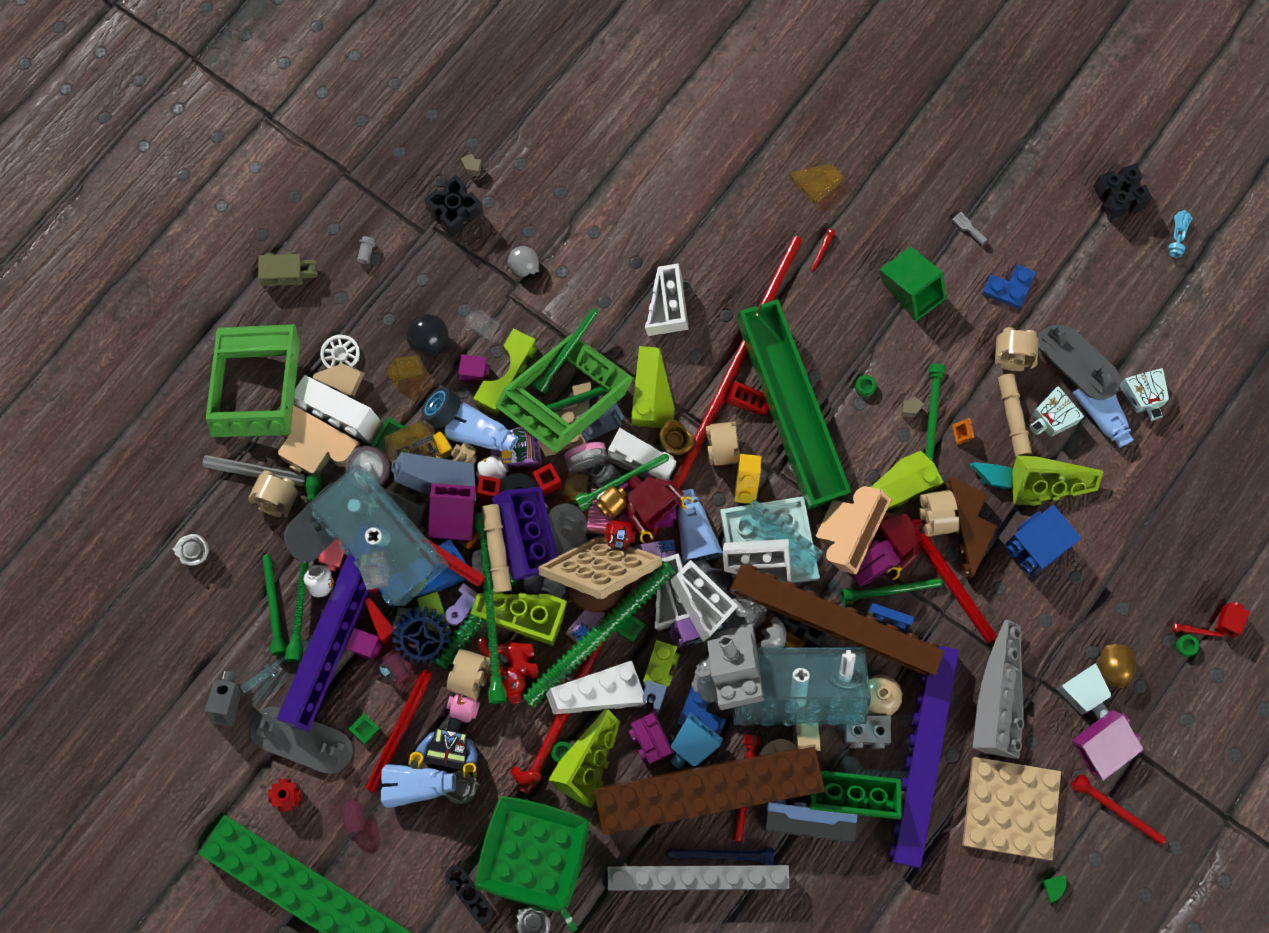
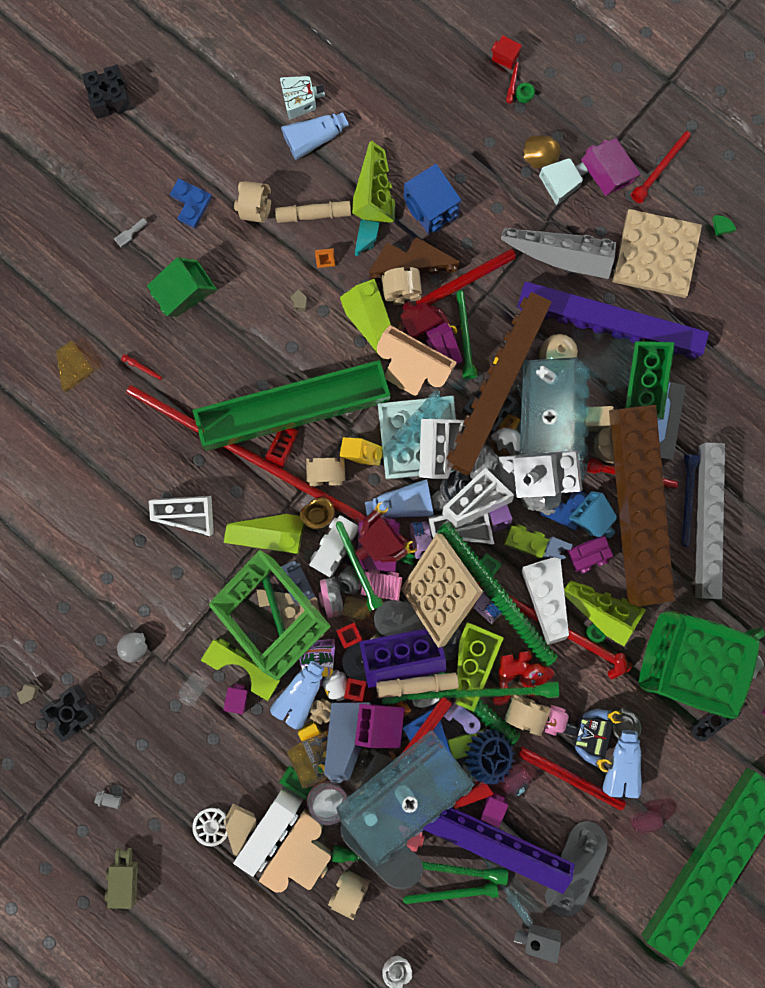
camera: 80 degrees left, 10 degrees up
(250, 469) = (322, 911): light grey axle -> none
(253, 342) = (197, 914): bright green window -> none
(292, 798) = (621, 884): red brick -> none
(319, 581) = (434, 851): white head -> none
(364, 729) = (568, 810): green tile -> none
(375, 575) = (446, 804): clear brick -> none
(404, 368) = (231, 765): clear yellow bracket -> none
(427, 335) = (201, 742): black piece -> none
(440, 407) = (274, 732): black wheel -> none
(542, 384) = (254, 633): green piece -> none
(612, 501) = (377, 576): pearl gold head -> none
(619, 534) = (408, 571): red head -> none
(865, 385) = (276, 340): green tile -> none
(875, 733) = (594, 359): light grey brick -> none
(891, 617) = (498, 333): blue plate -> none
(936, 373) = (270, 276): green piece -> none
(1055, 414) = (314, 176): light aqua torso -> none
(1079, 361) = (268, 148): dark grey piece -> none
(1182, 221) = (137, 43): medium azure piece -> none

